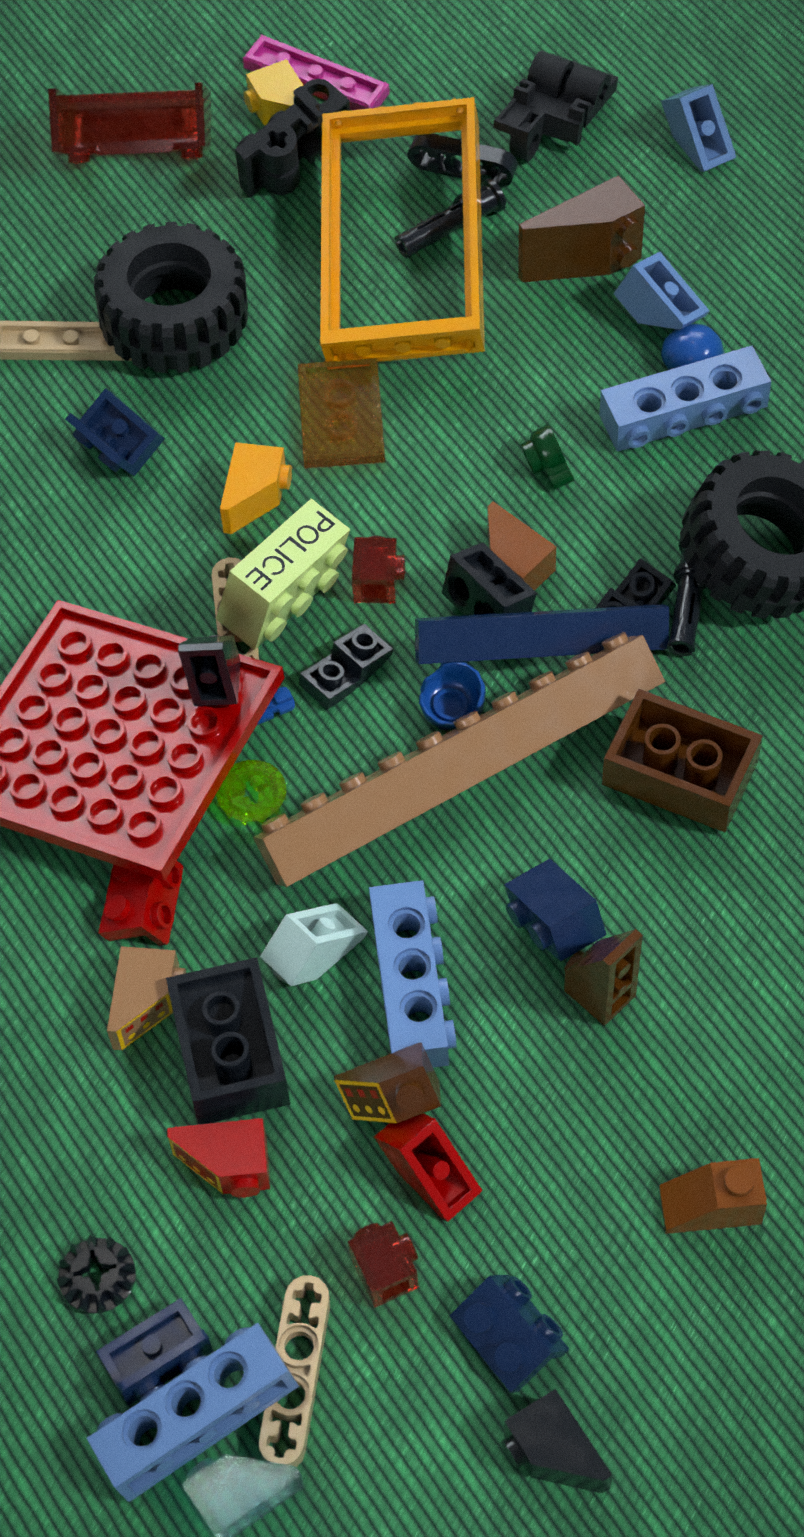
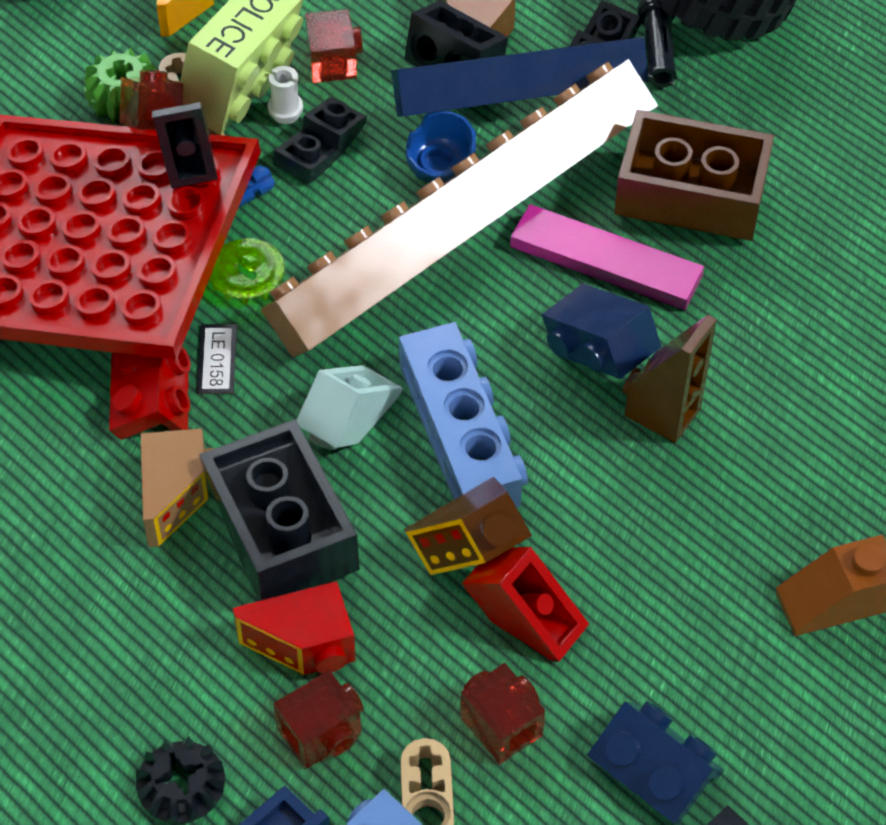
camera: 15 degrees left, 5 degrees down
(175, 585) = (104, 80): none -> bright green gear
(193, 611) = (146, 94): none -> clear red brick
(208, 874) = (217, 358): none -> sticker
(225, 1241) = (319, 719): none -> clear red brick
(321, 622) = (284, 103): none -> white pin
(585, 828) = (607, 256): none -> tile

